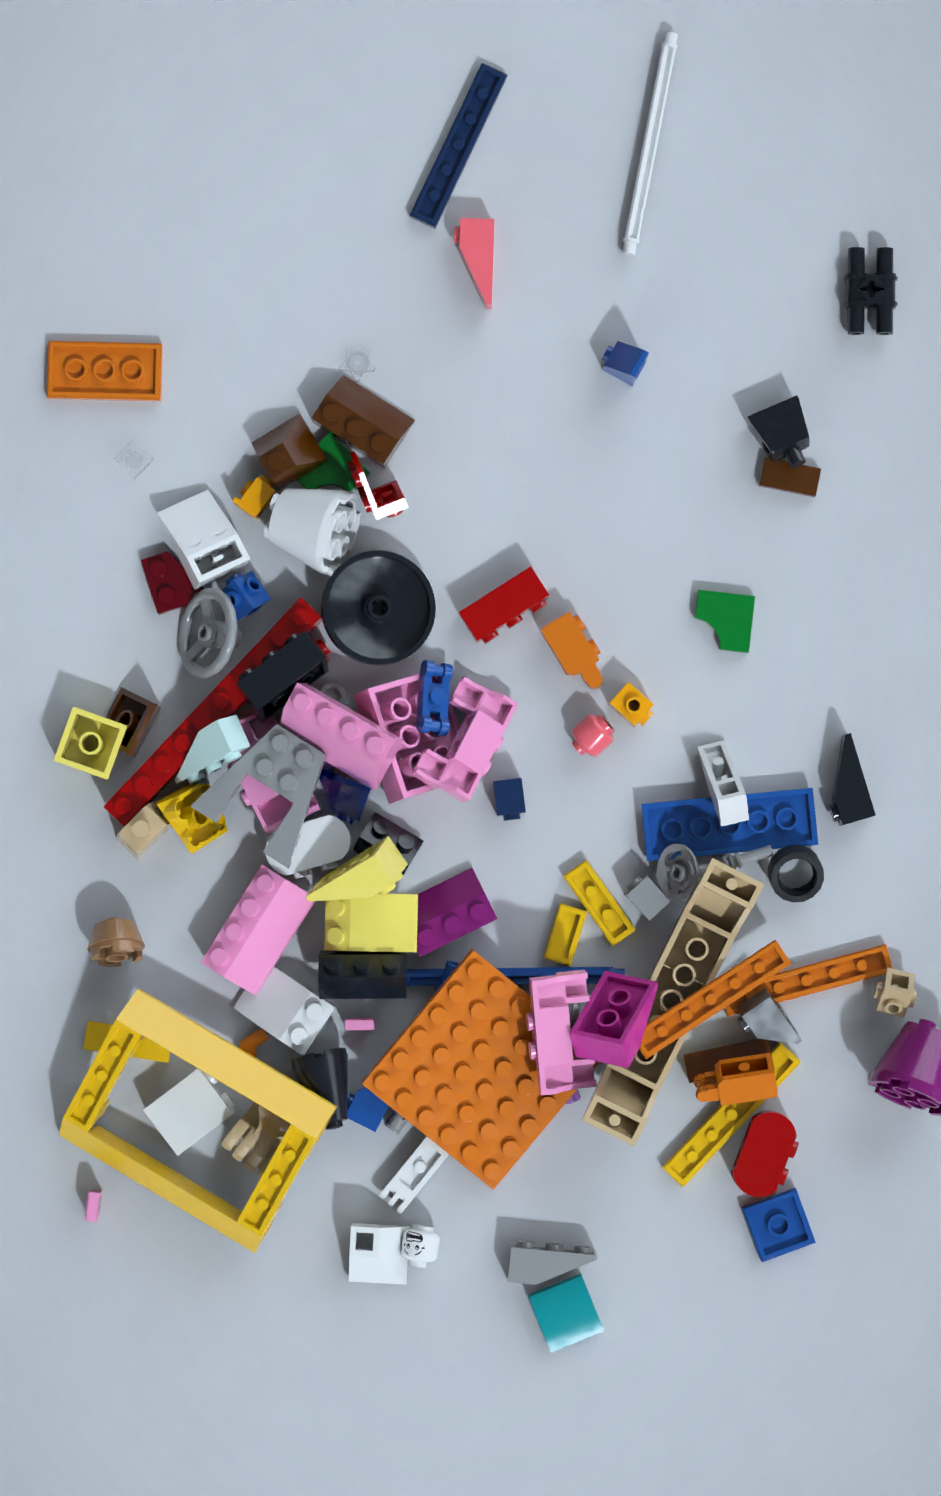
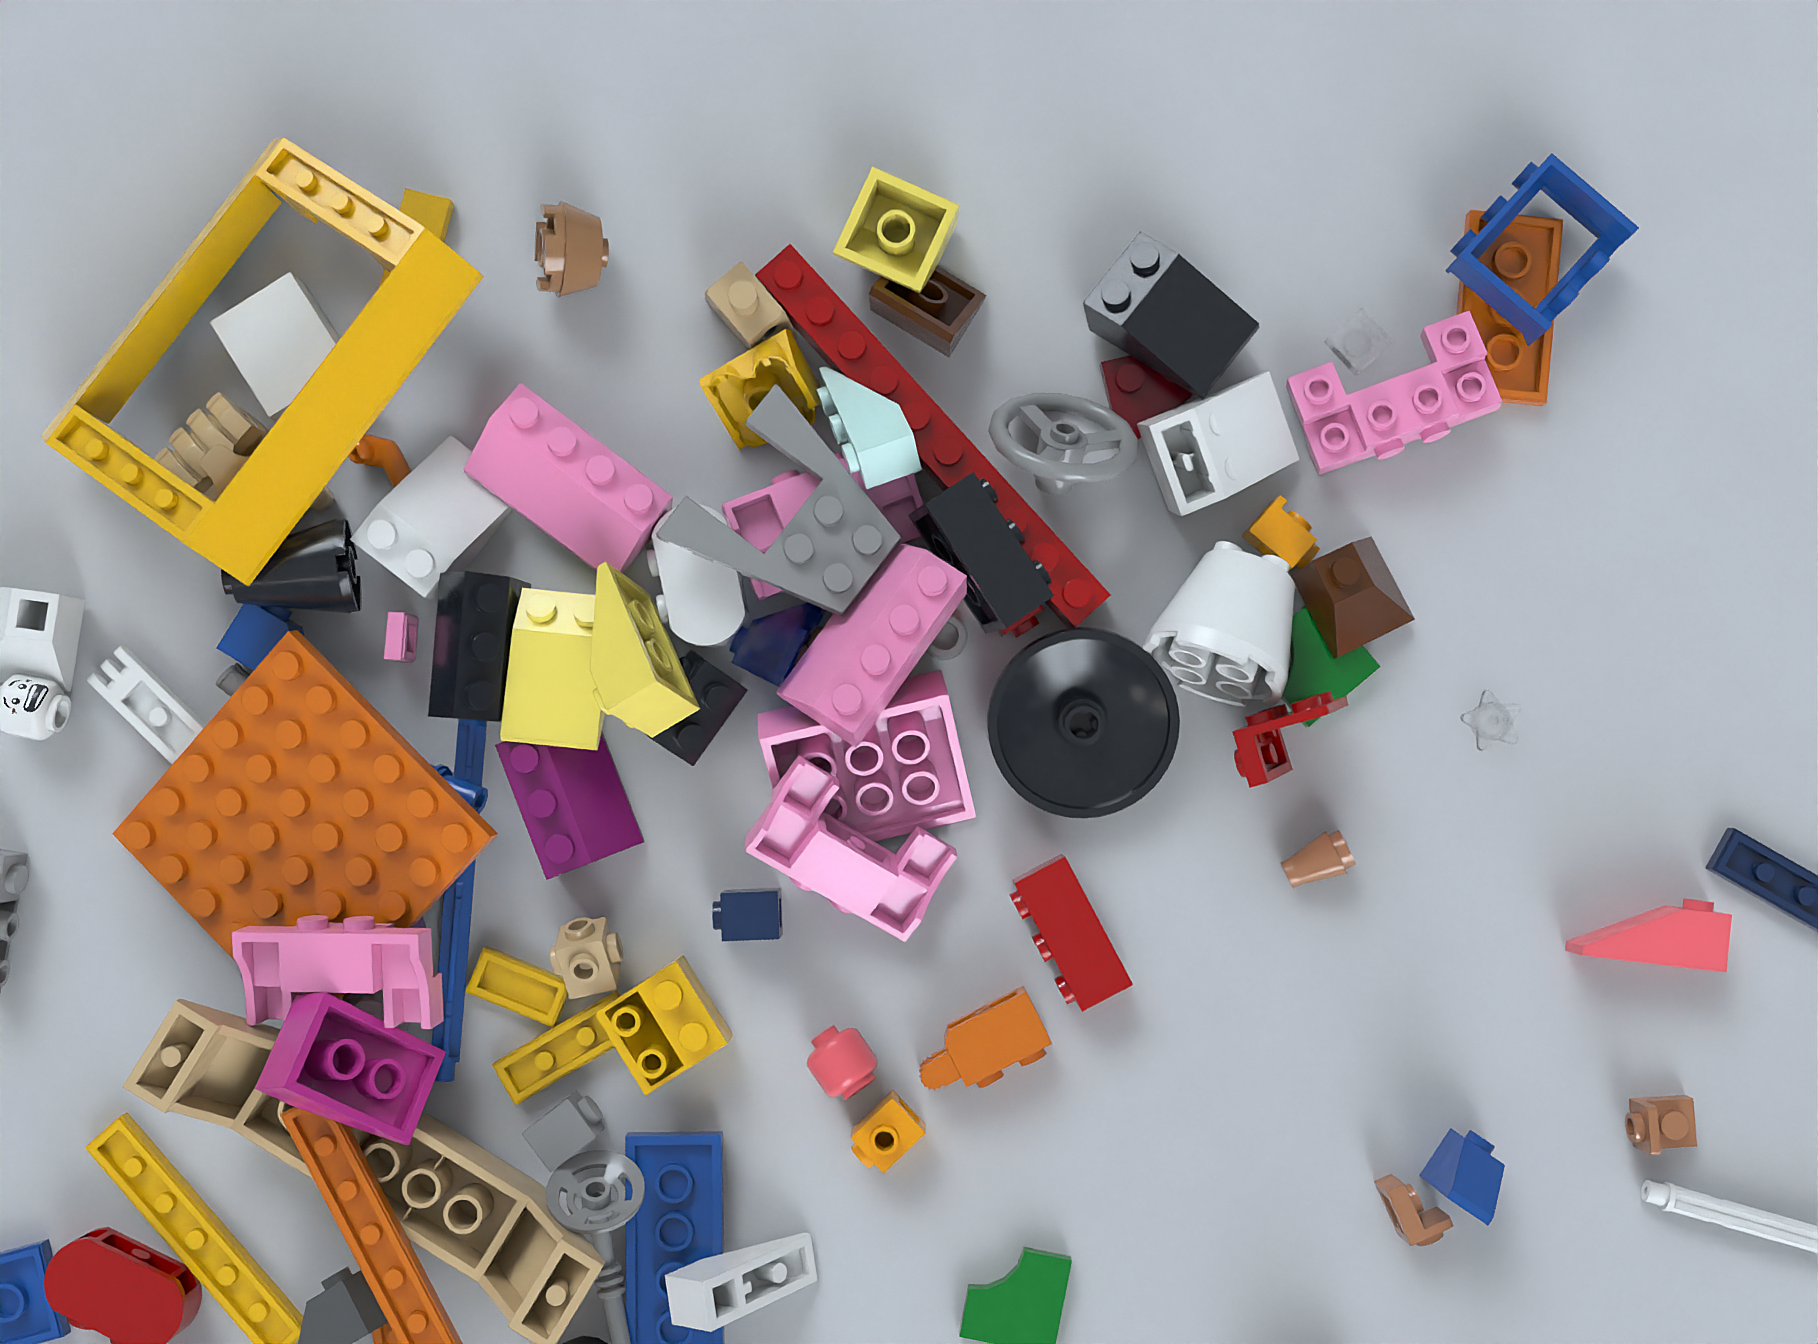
camera: 95 degrees right, 0 degrees up
(51, 380) = (1580, 202): none -> blue window
(93, 1205) = (150, 185): bright pink tile -> none
(129, 575) = (1168, 316): none -> black slope
(173, 431) = (1401, 409): none -> bright pink bracket
(246, 594) = (1122, 505): blue brick -> none
(362, 420) = (1395, 721): reddish brown slope -> none
(434, 698) = (925, 803): blue plate -> none
(449, 460) = (1320, 859): none -> nougat cone
(542, 892) = (587, 957): none -> tan brick
(579, 843) = (664, 1025): none -> yellow slope
(588, 247) = (1661, 1123): none -> nougat bracket
(650, 396) = (1403, 1208): none -> nougat bracket
(705, 1060) = (283, 1243): reddish brown tile -> none
(738, 1080) = (238, 1265): orange hinge -> none

